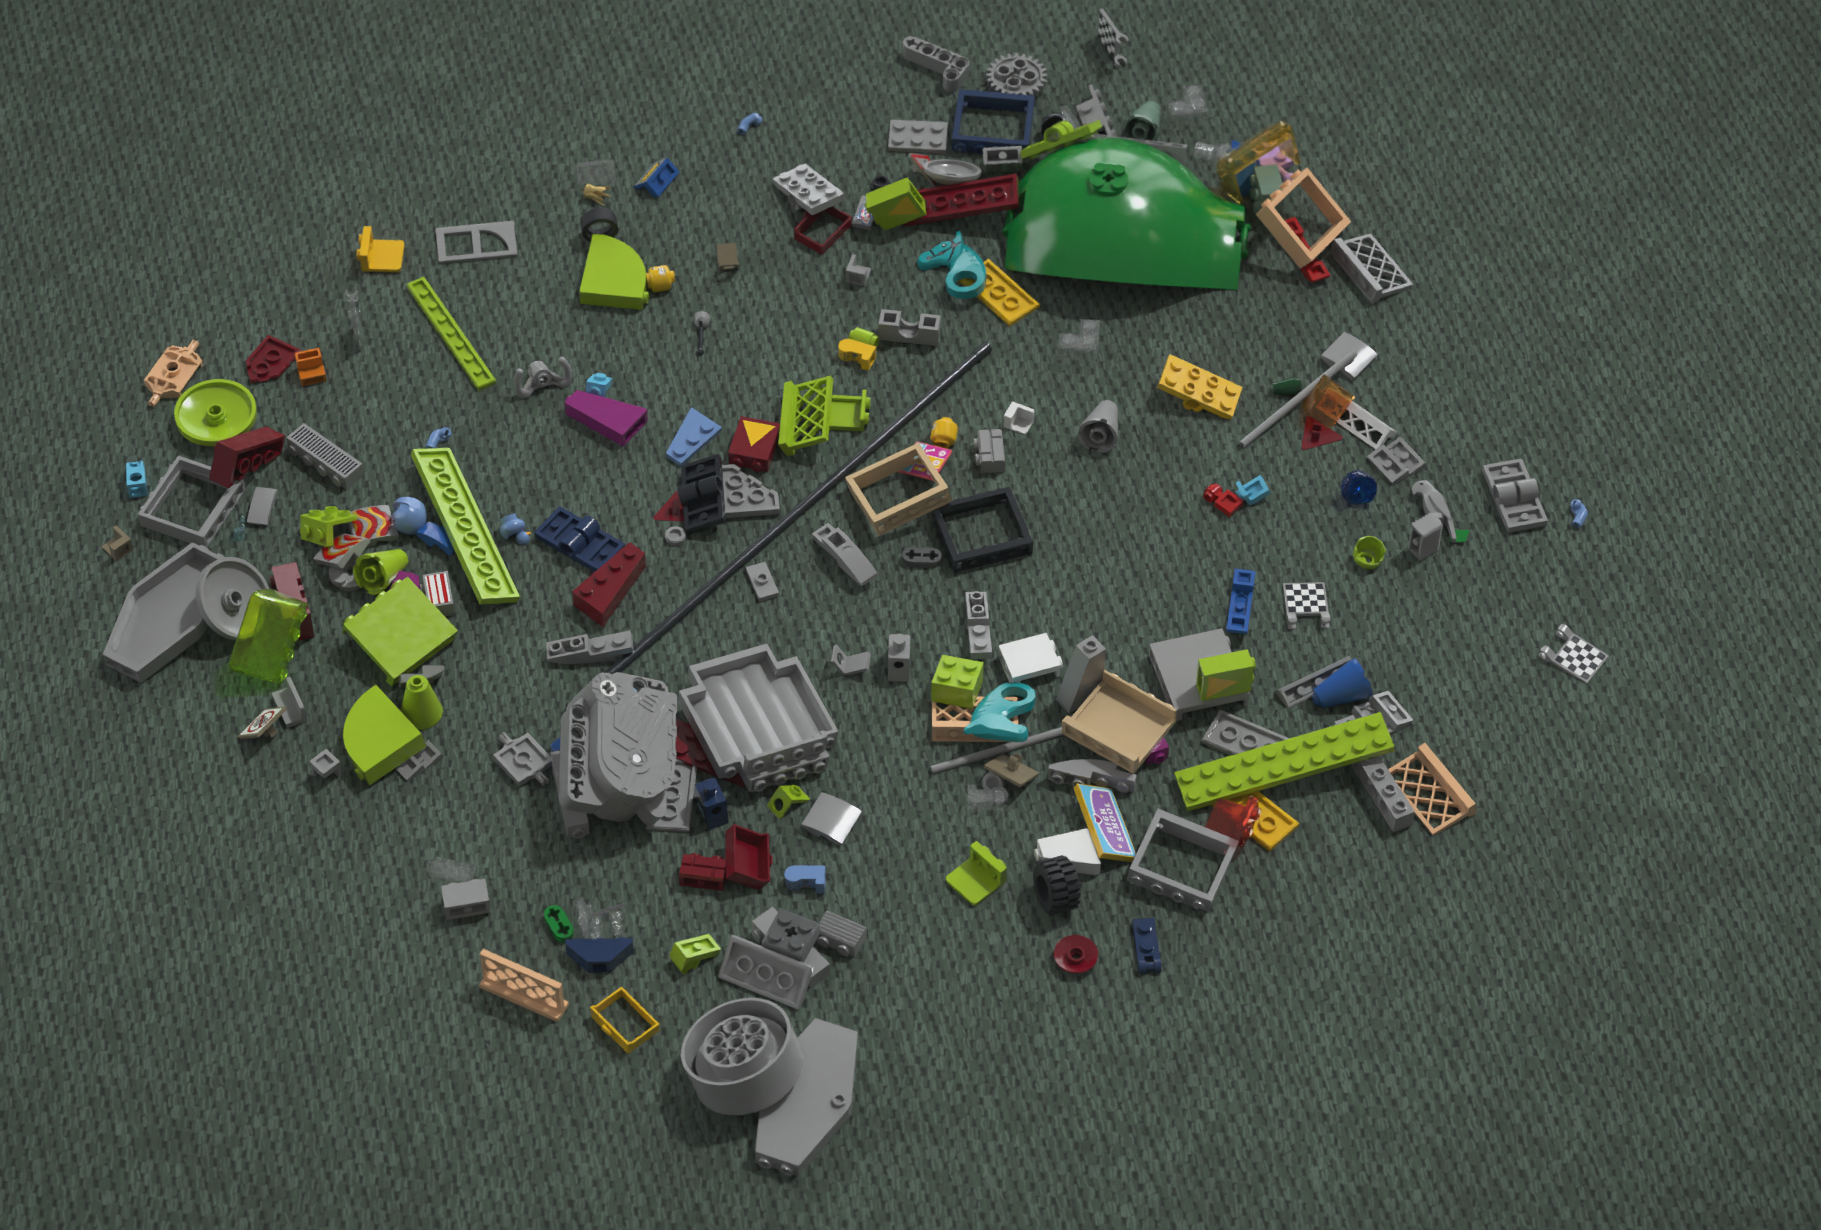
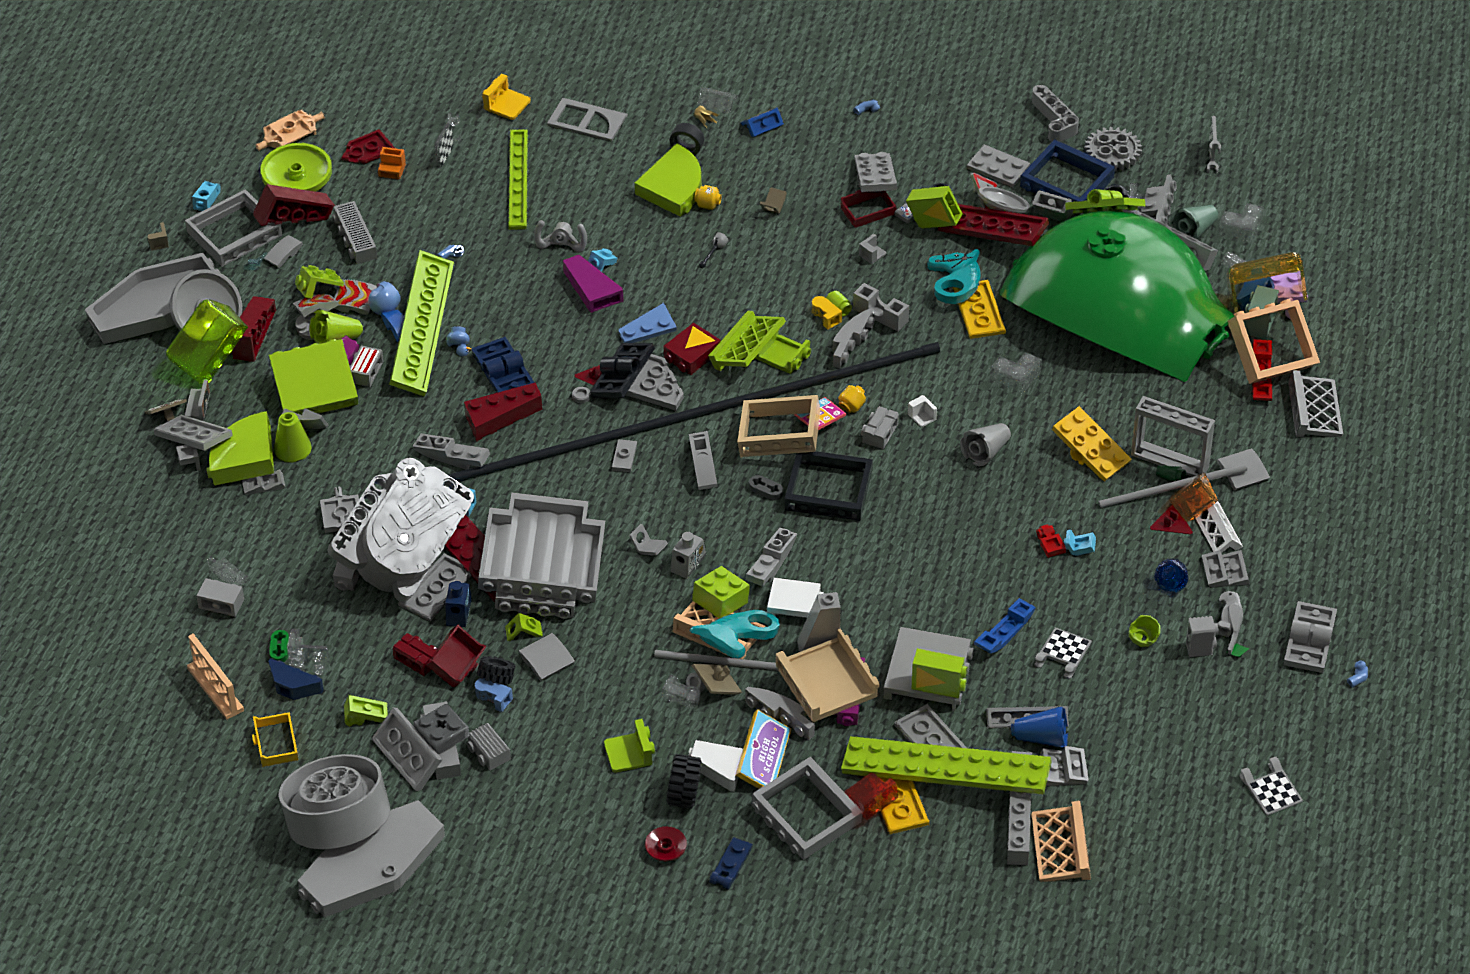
camera: 30 degrees right, 5 degrees down
(314, 738) = (193, 432): none -> light grey tile
(796, 853) = (496, 669): none -> black tyre
(899, 369) = (850, 334): none -> light grey slope
(1279, 331) = (1177, 418): none -> light grey window

